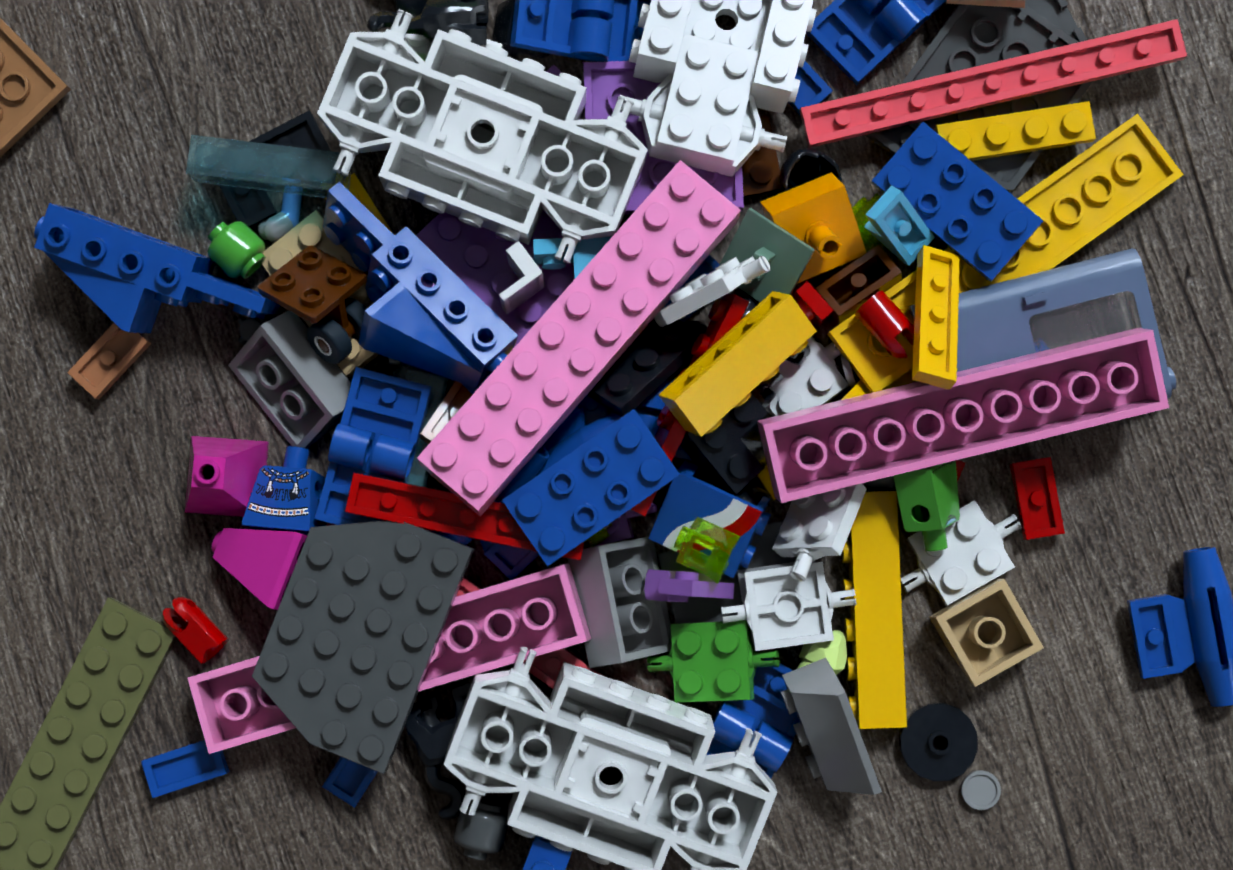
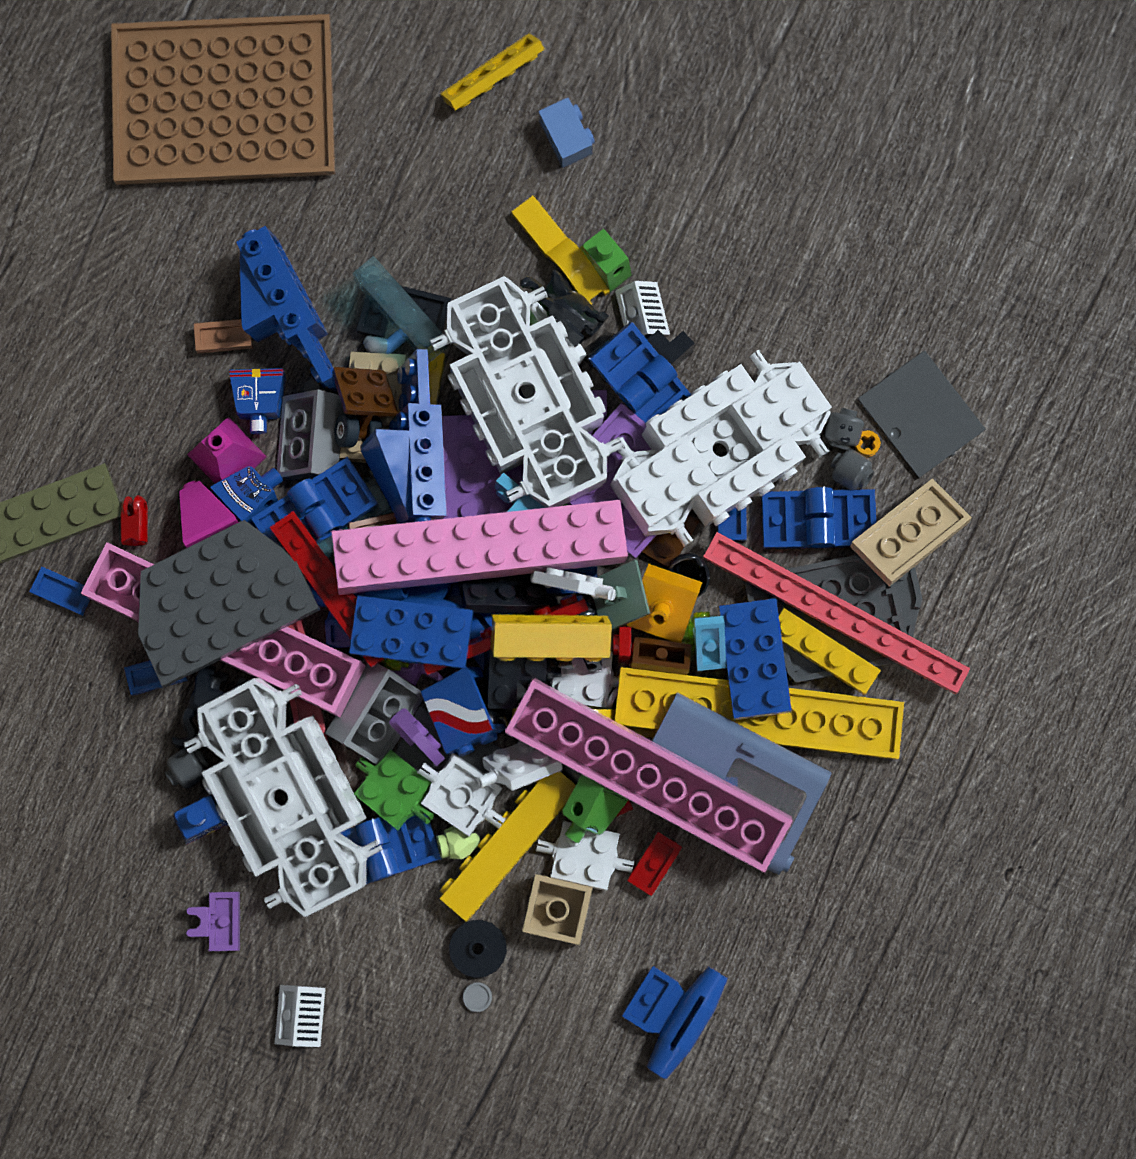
camera: 35 degrees right, 5 degrees down
(202, 387) = (258, 395): none -> blue torso
(236, 249) = (343, 338): bright green head -> none
(529, 277) = (476, 494): white panel -> none
(712, 537) = (452, 718): clear neon green window -> none
(829, 729) = (421, 882): light grey slope -> none
(885, 322) = (655, 687): red piece -> none
(936, 318) = (681, 708): yellow plate -> none

